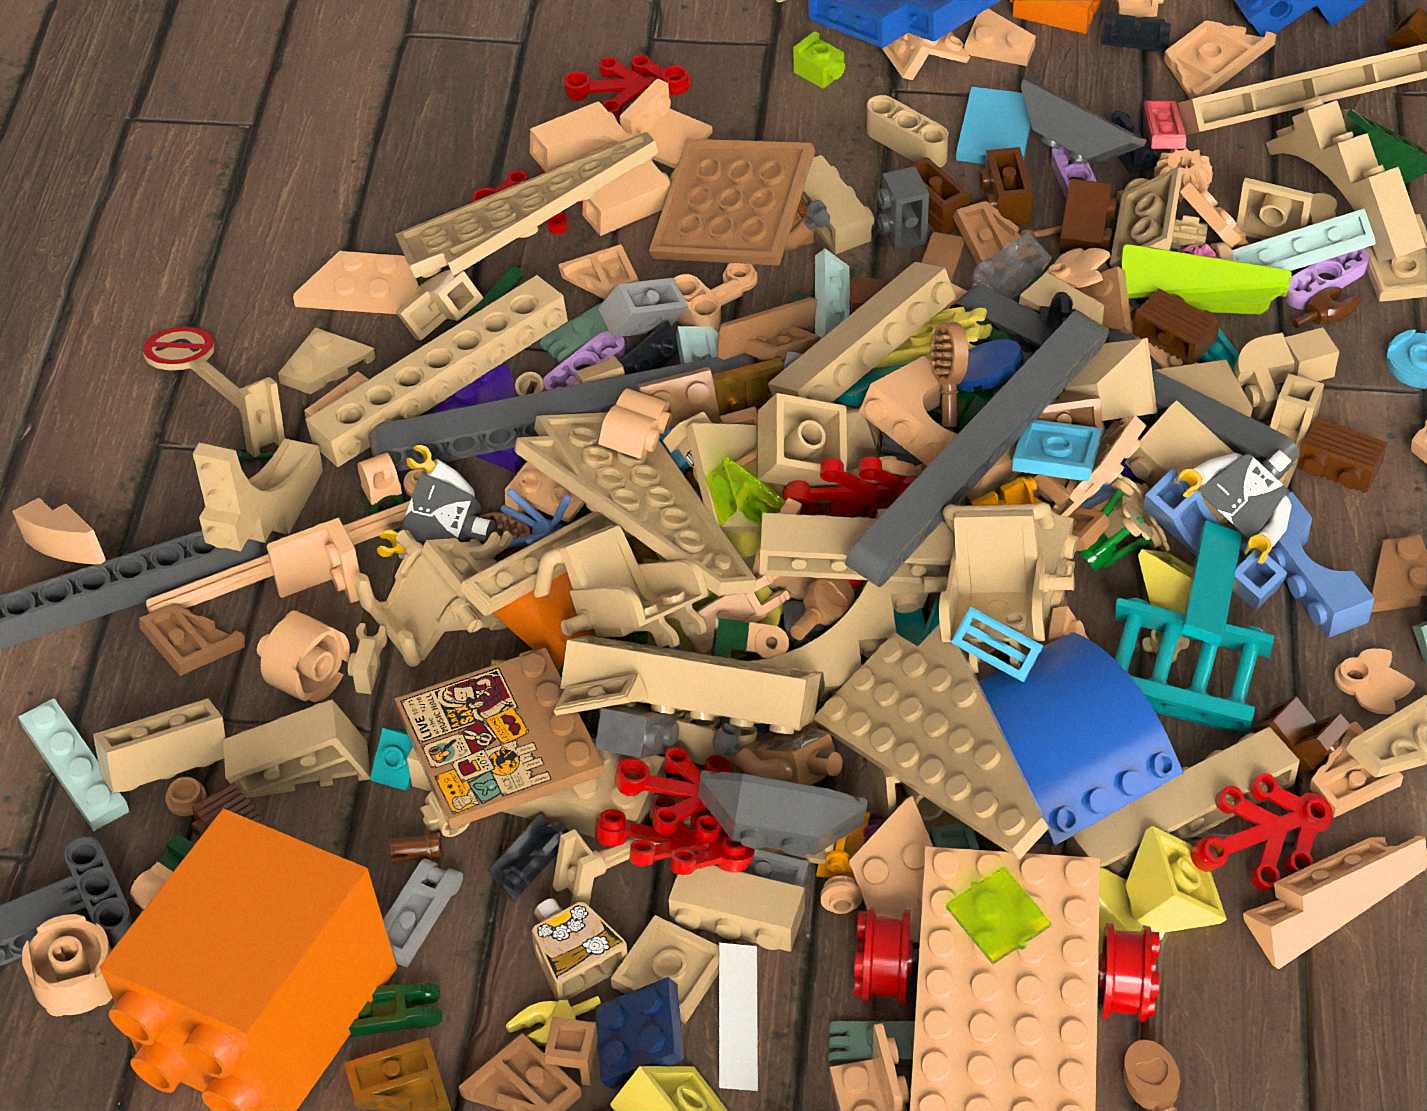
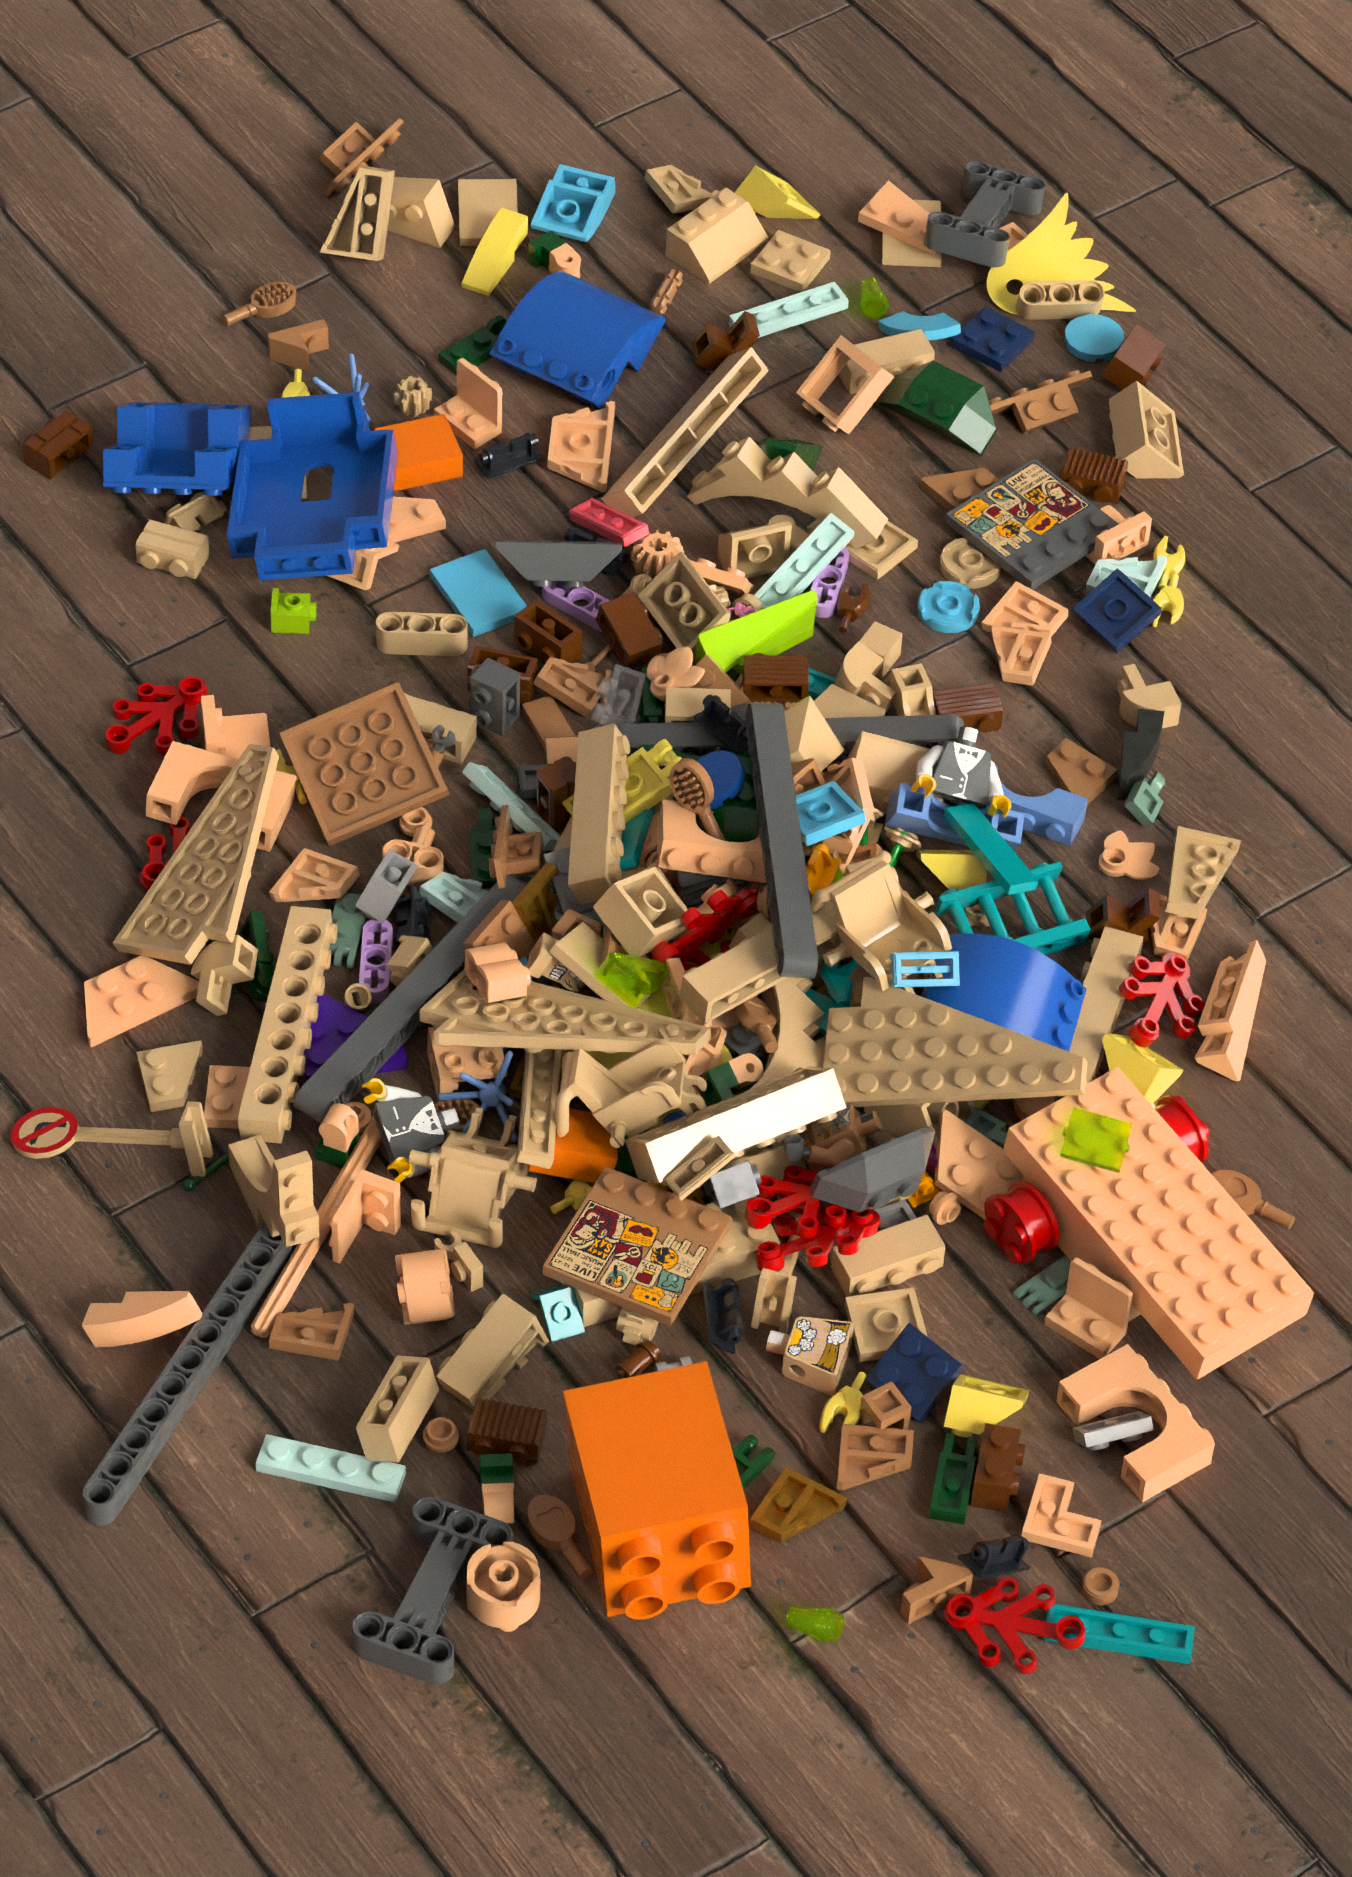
camera: 45 degrees left, 0 degrees up
(738, 1017) = (959, 1324): white sticker -> none

